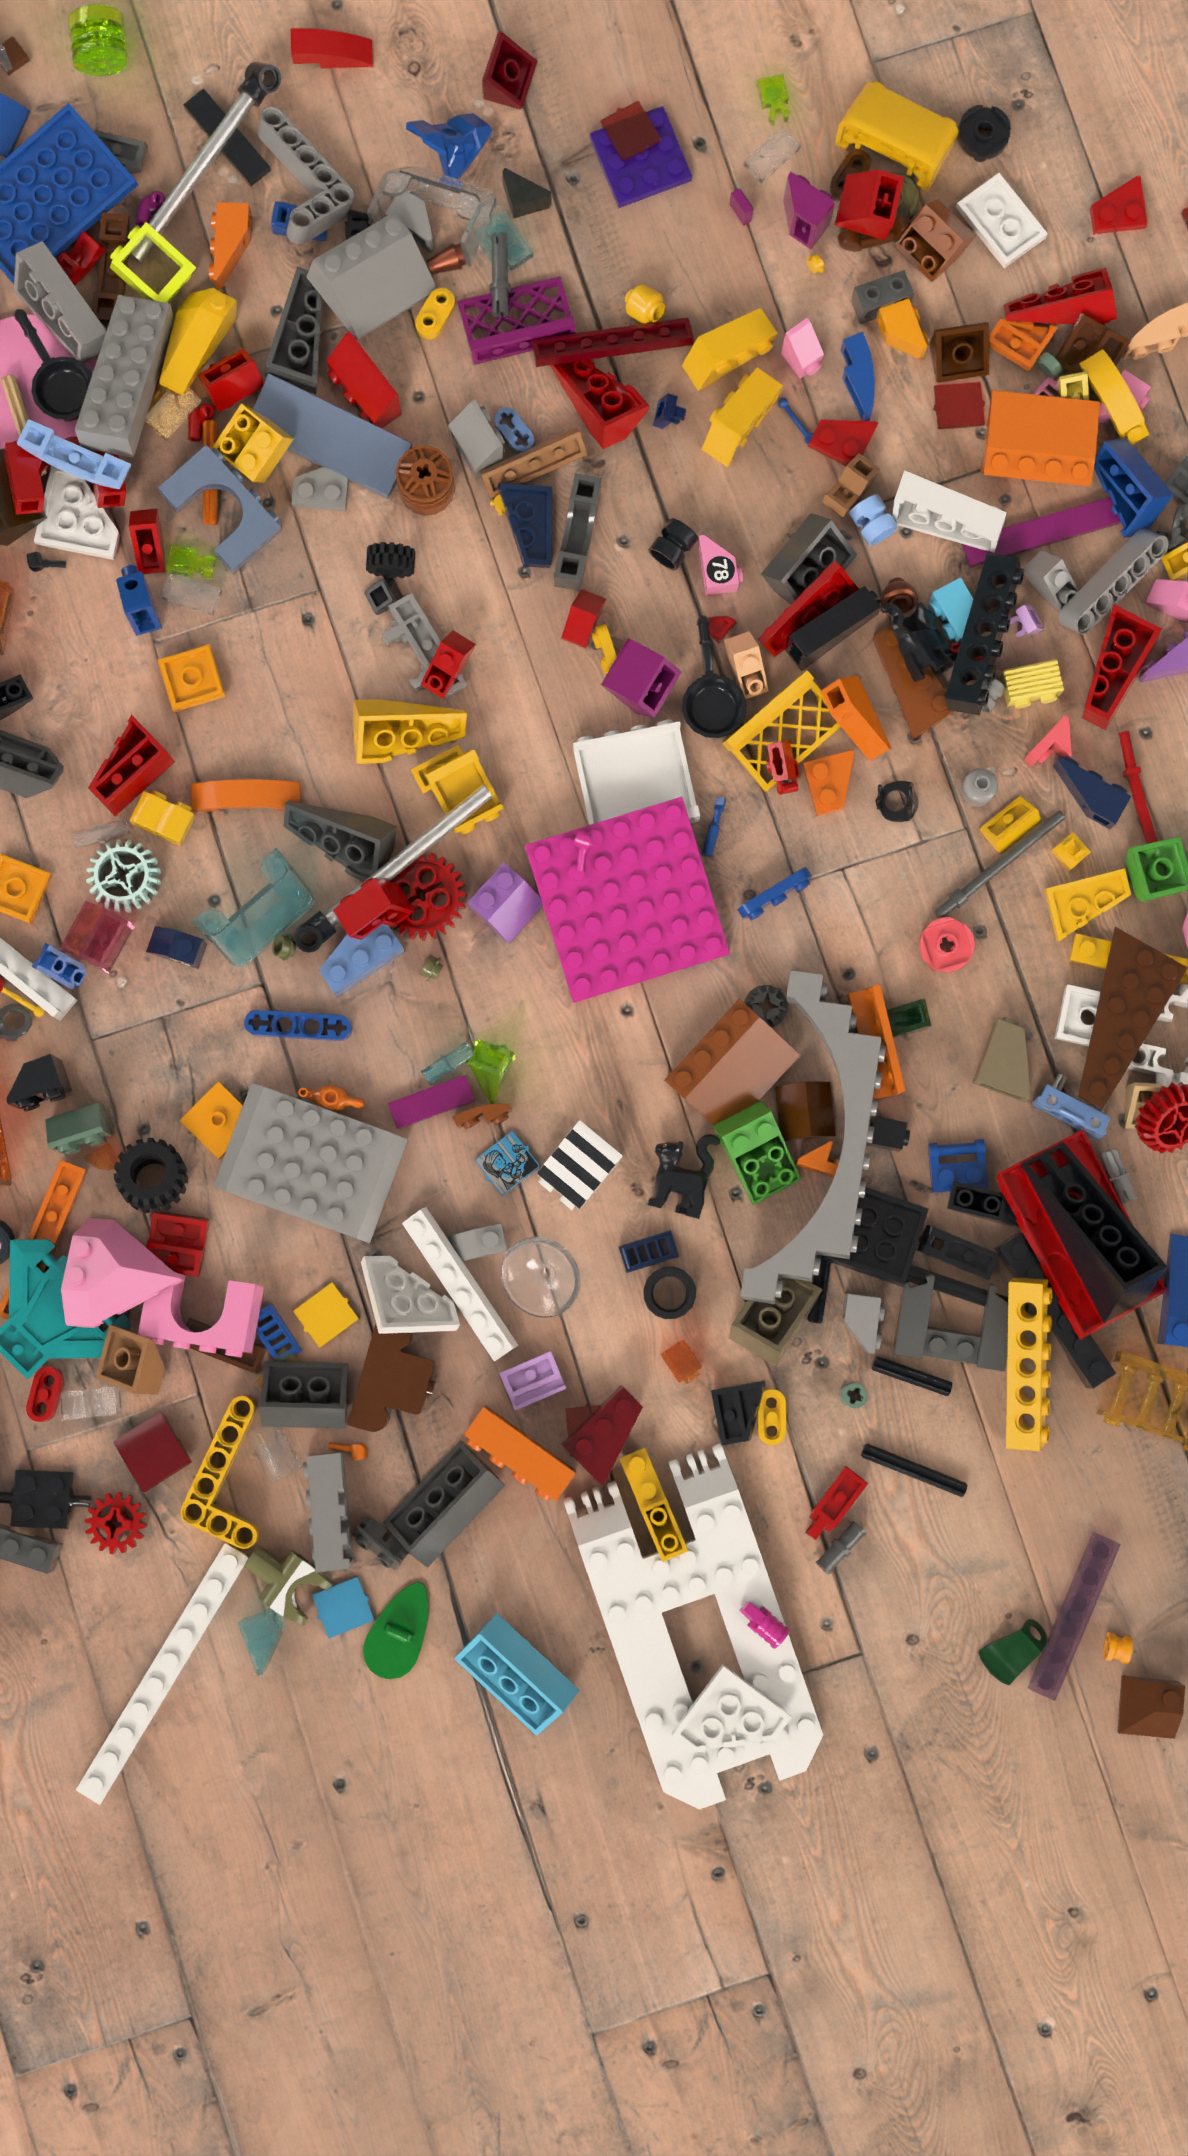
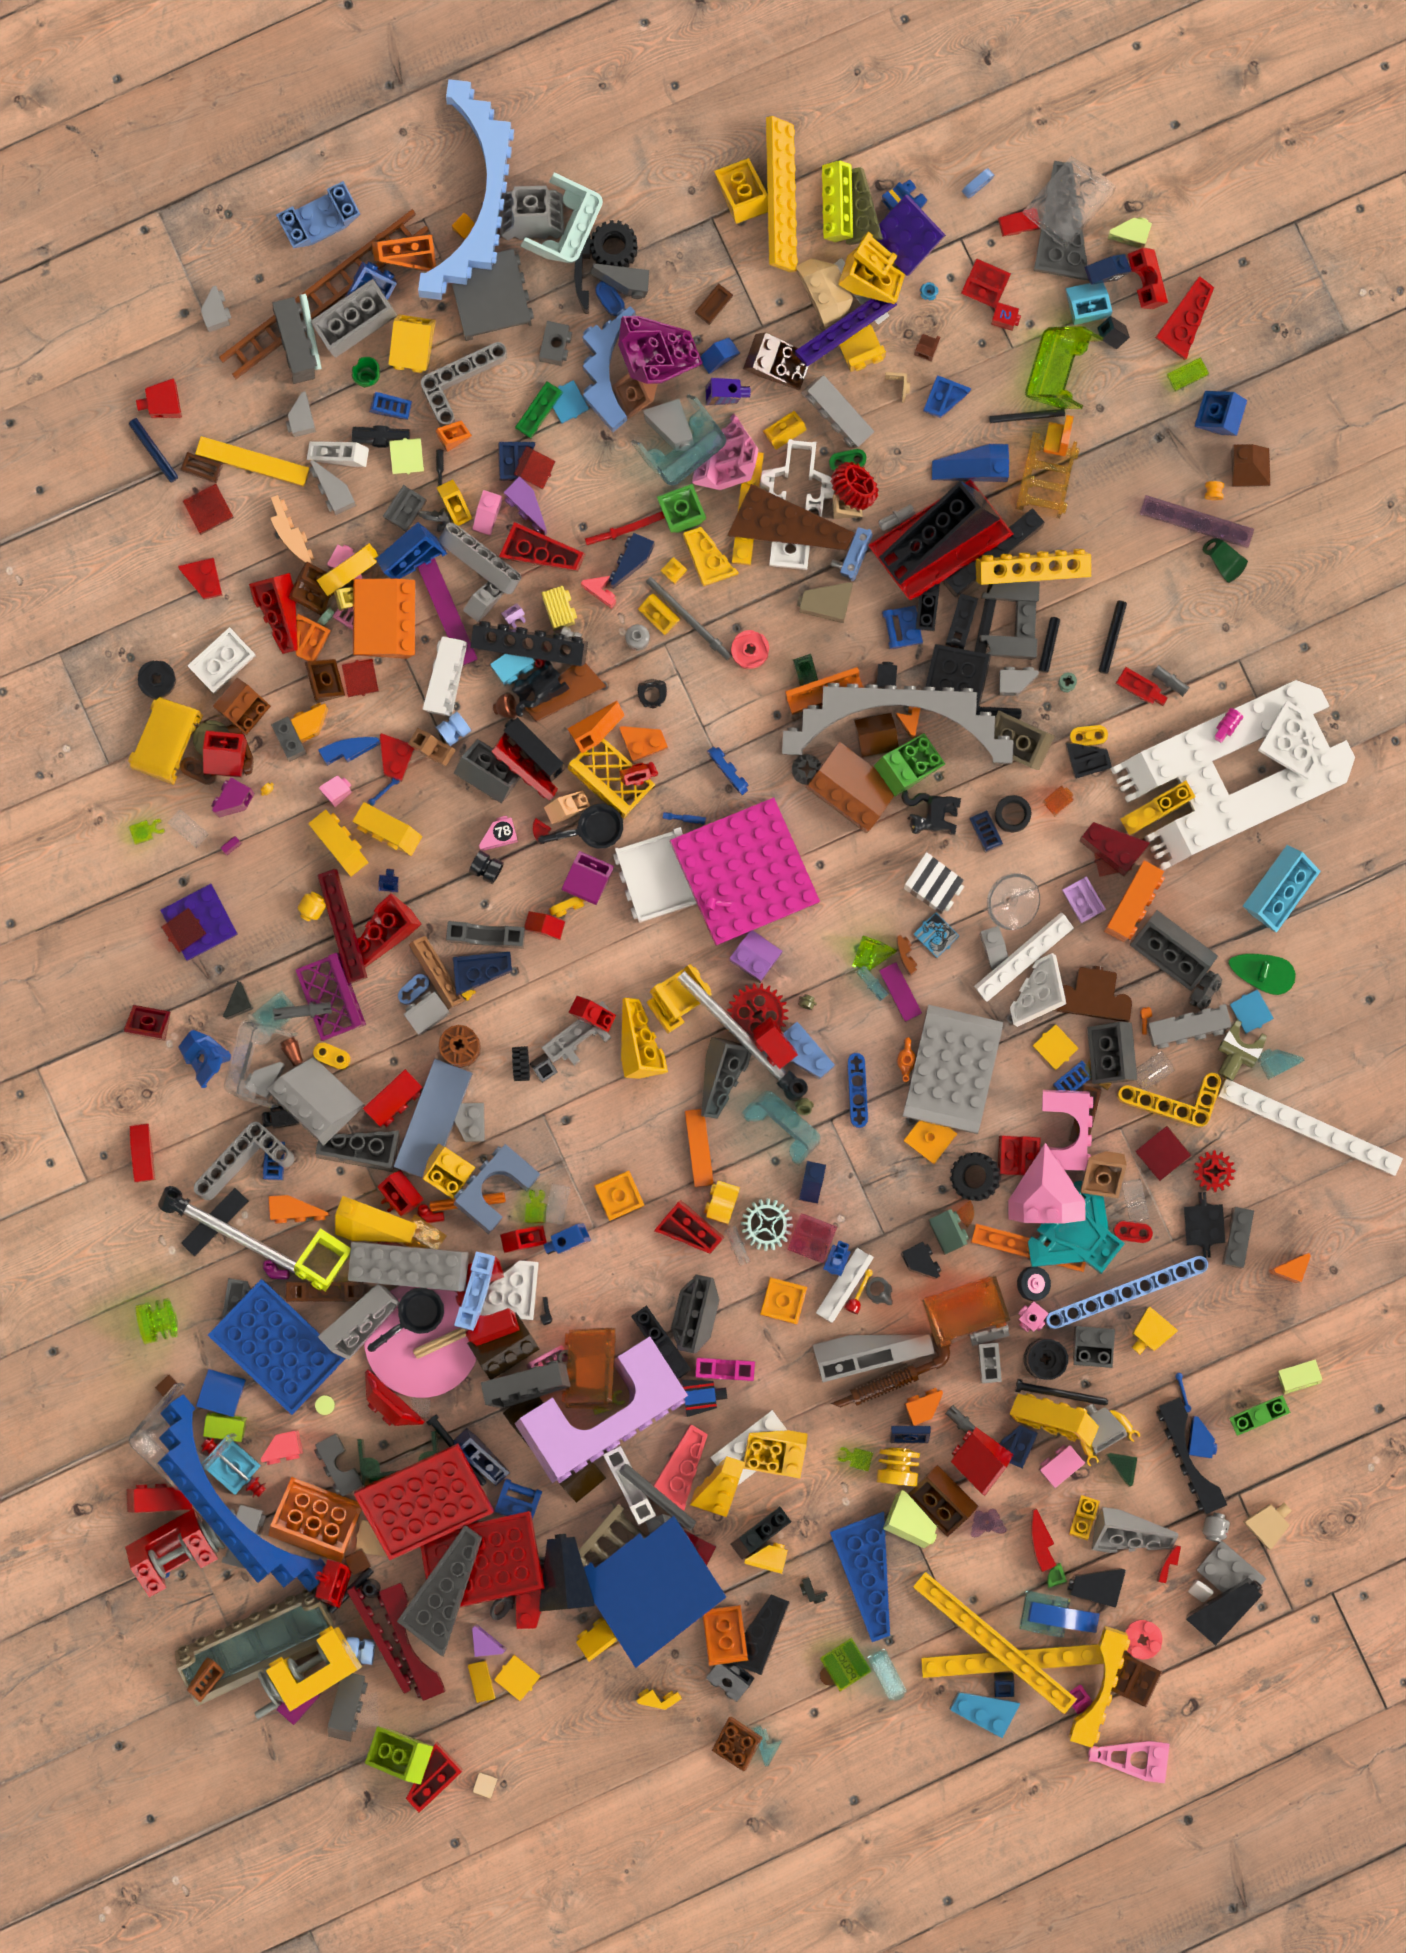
camera: 90 degrees left, 0 degrees up
(81, 258) = (317, 1314): red slope -> none

